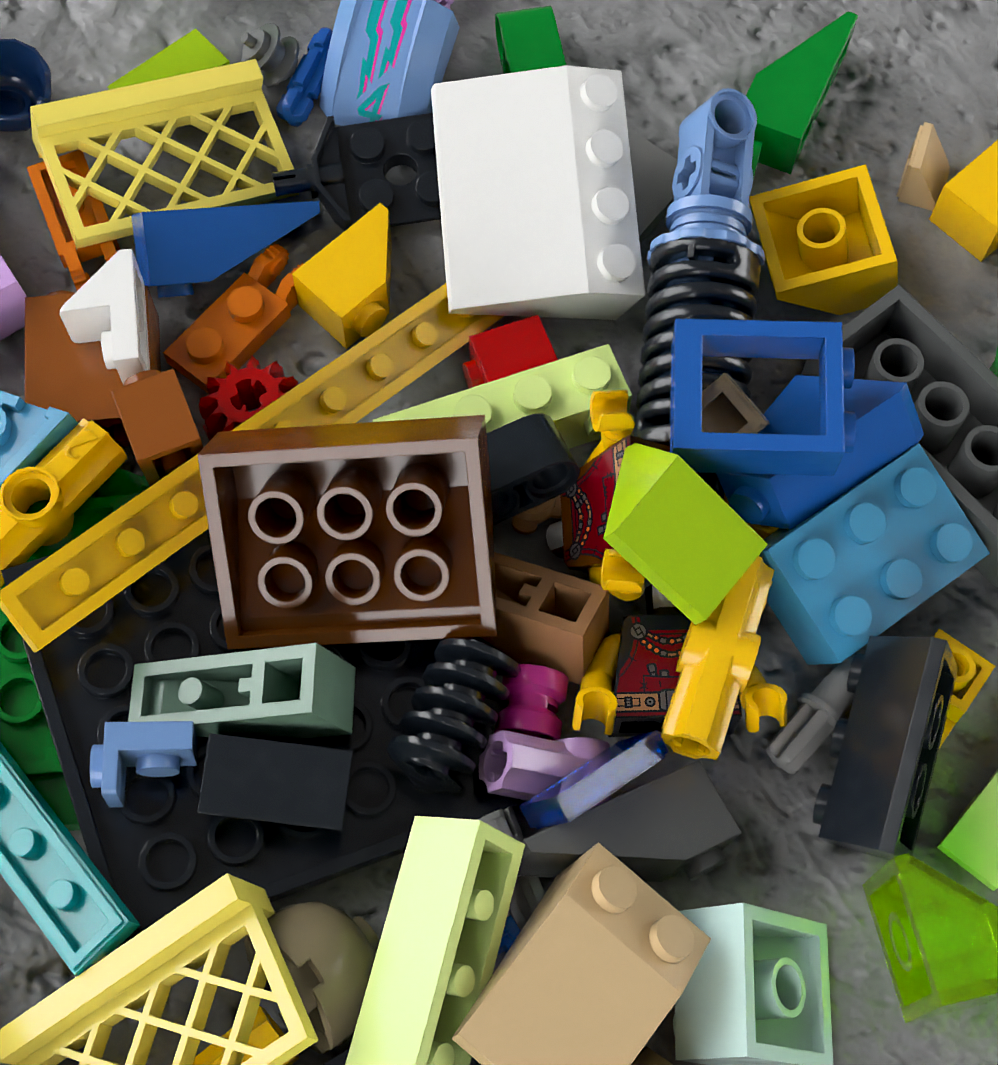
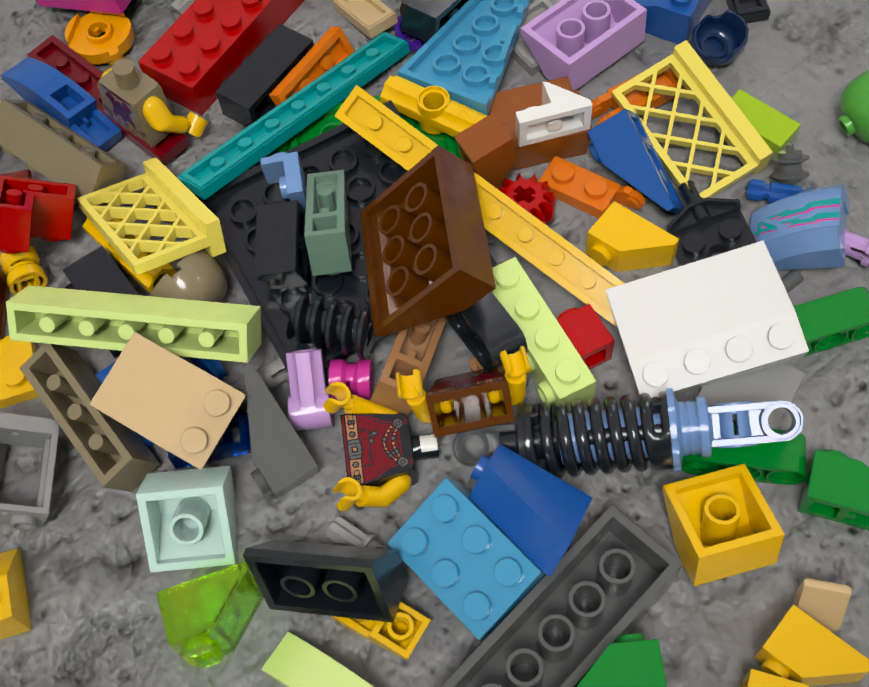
camera: 90 degrees right, 5 degrees down
(594, 780) = (292, 400): clear blue tile -> none
(678, 531) = (440, 410): lime slope -> none
(716, 667) = (378, 461): yellow piece -> none
(729, 409) = (536, 440): tan slope -> none
(761, 452) = (523, 398): blue window -> none

